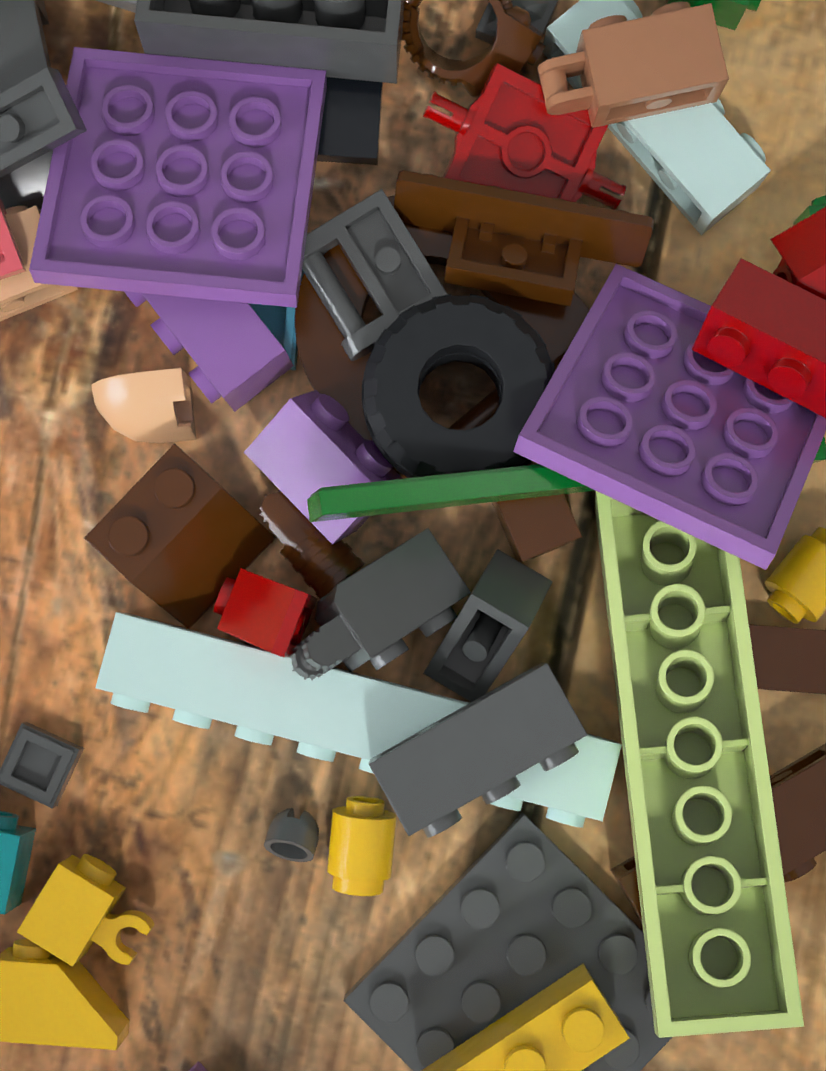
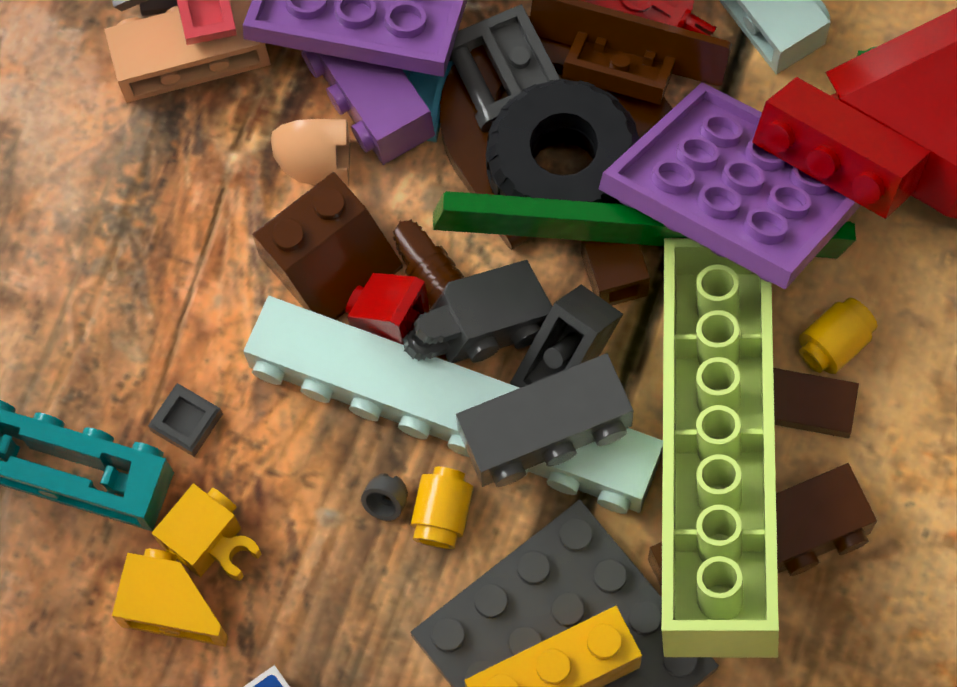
camera: 10 degrees right, 15 degrees down
(315, 448) = (420, 190): medium lavender brick -> none

